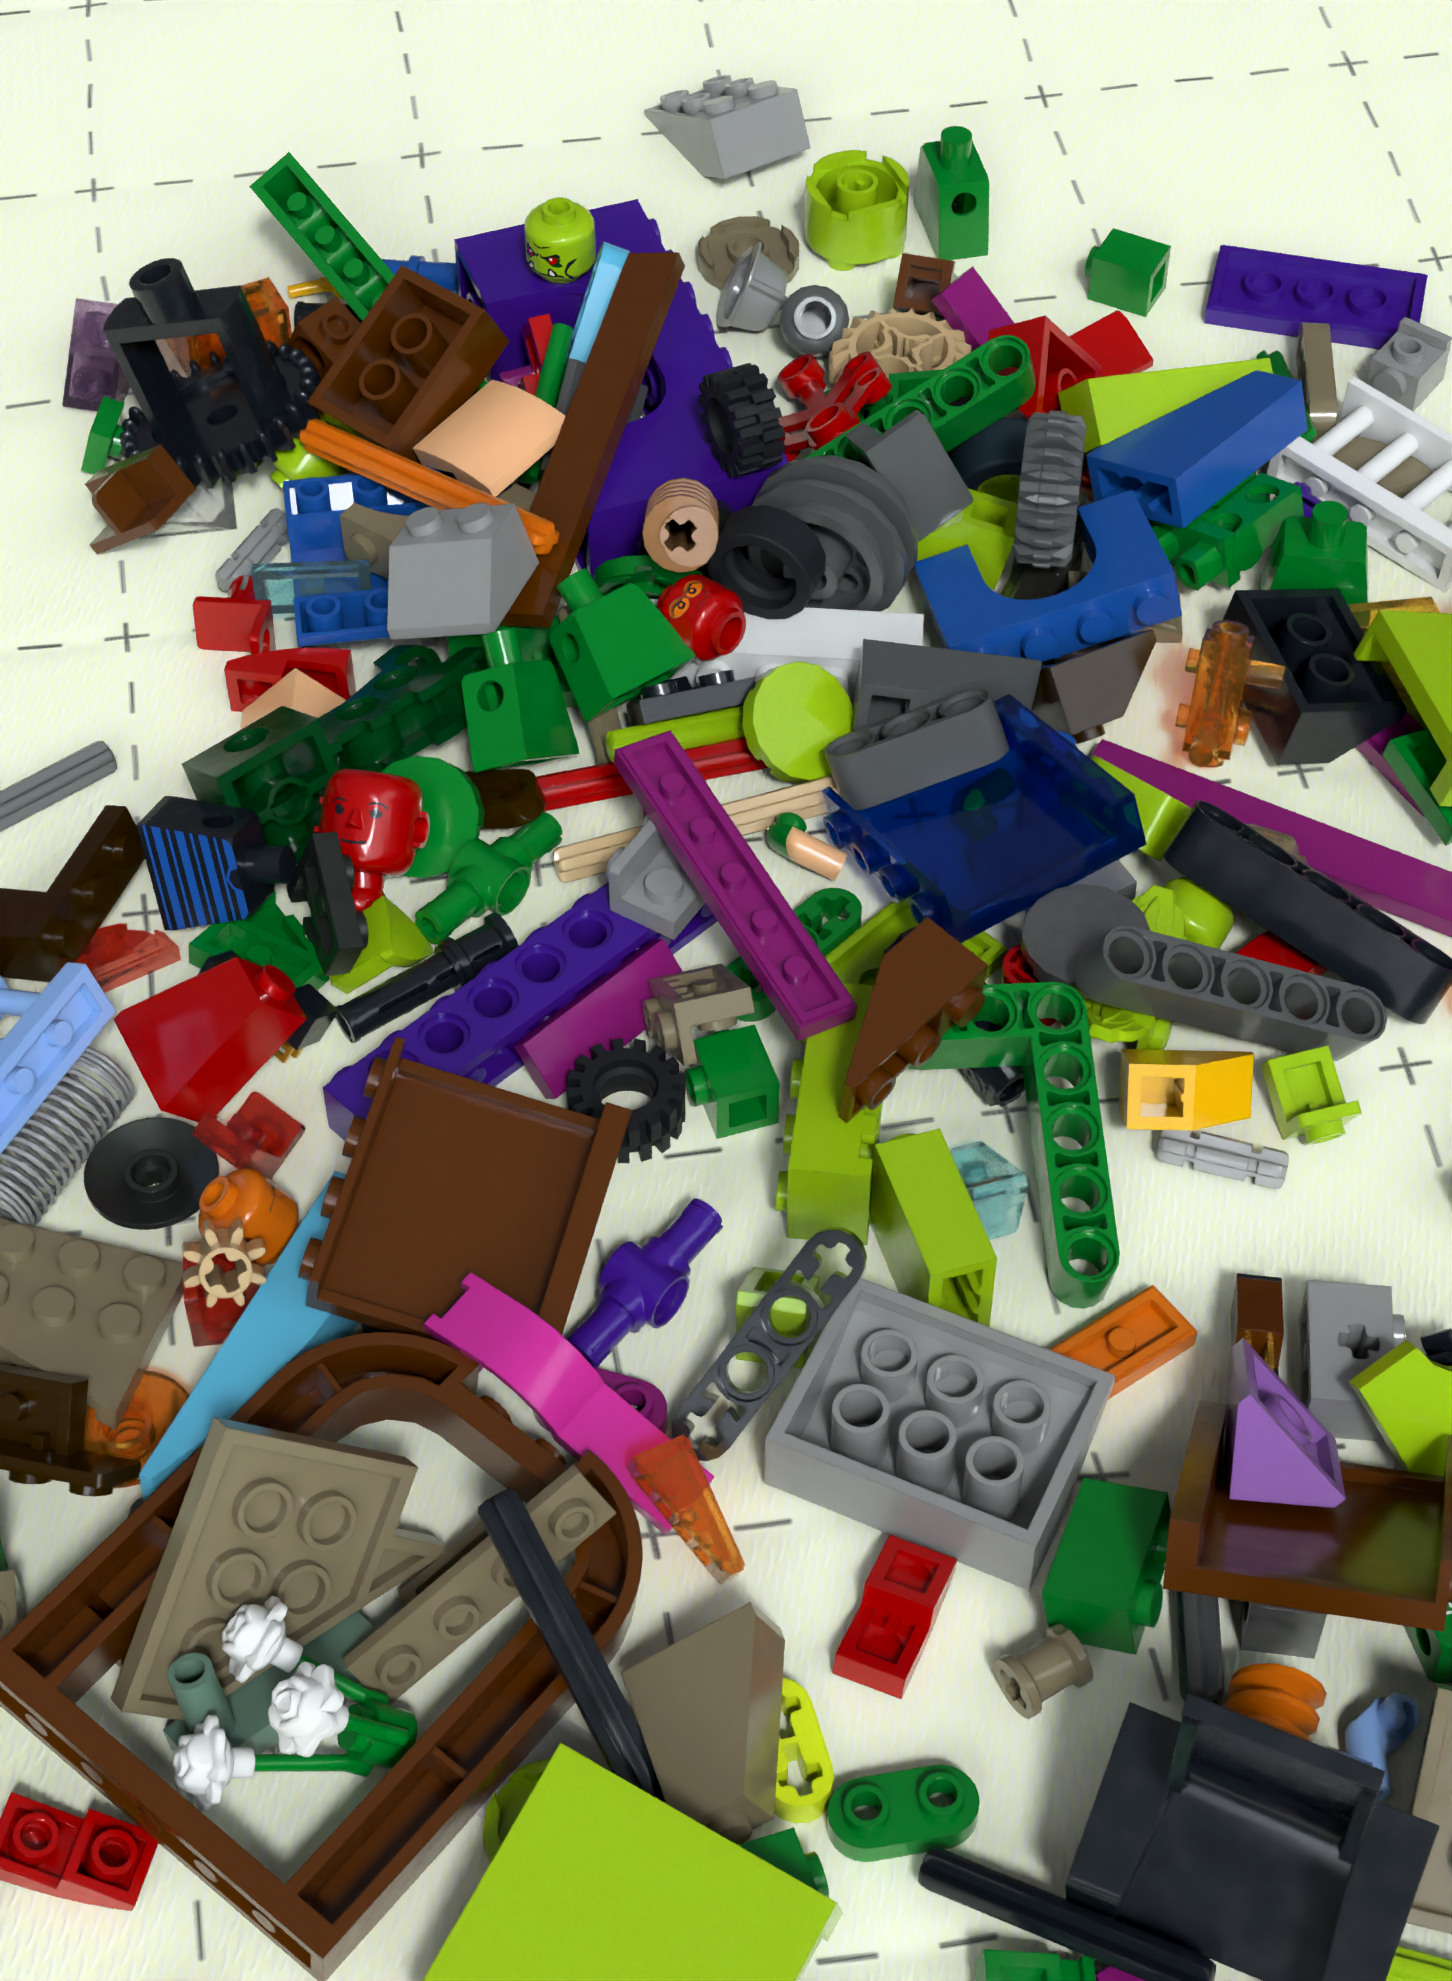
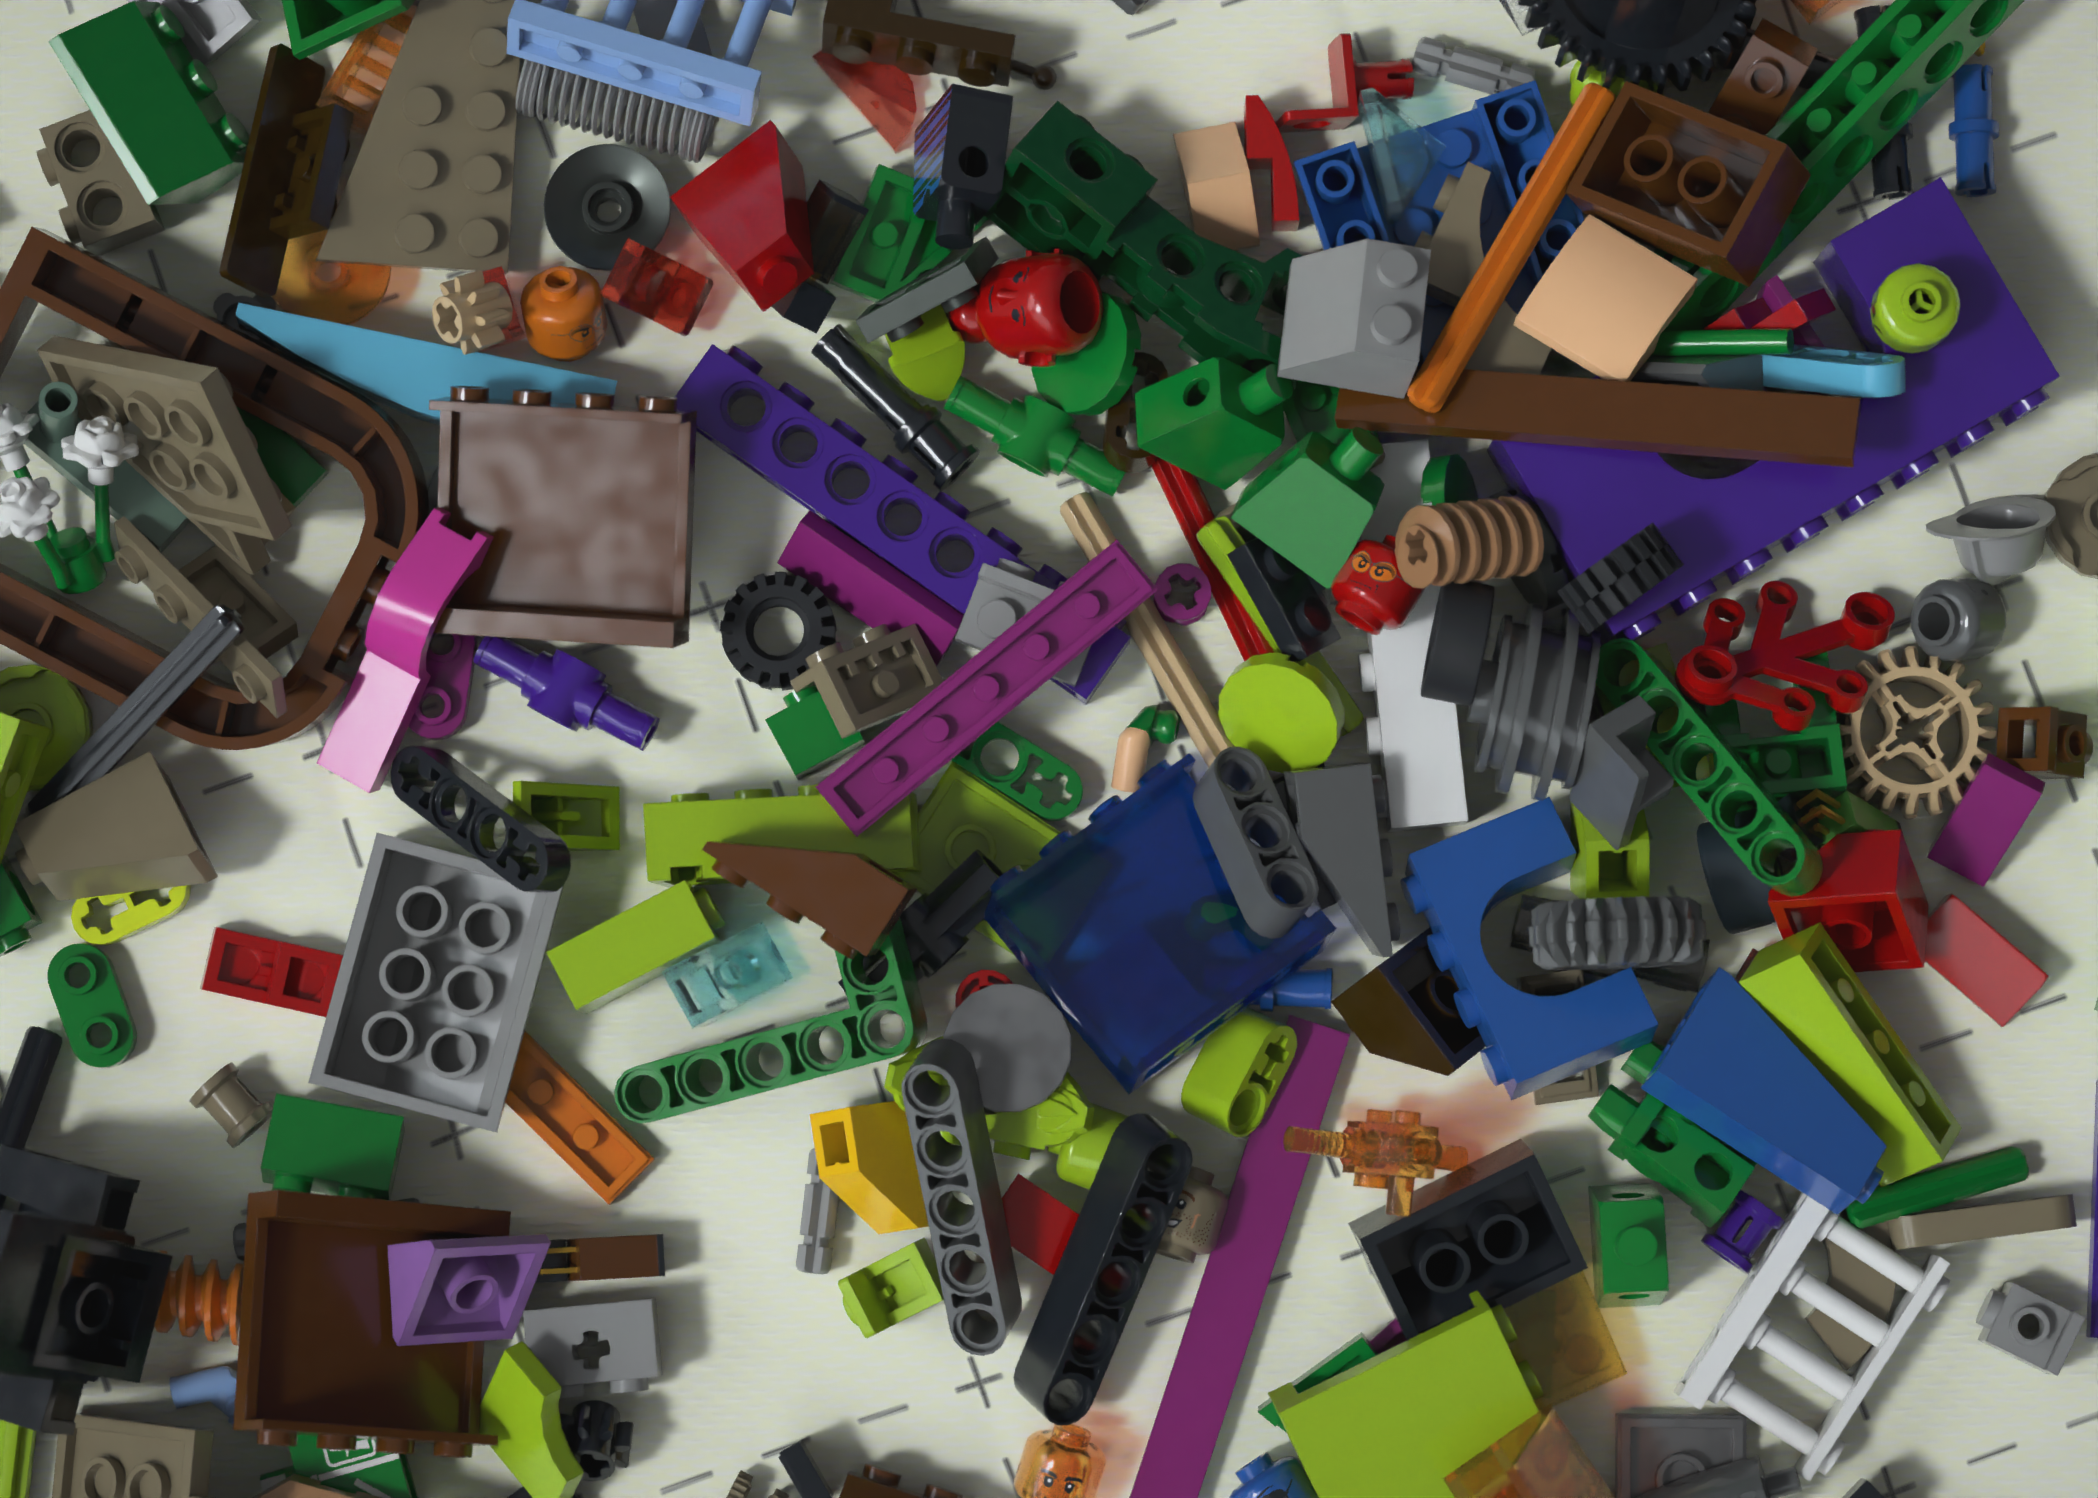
camera: 80 degrees right, 35 degrees up
(681, 1493) = (329, 765): clear orange slope -> none

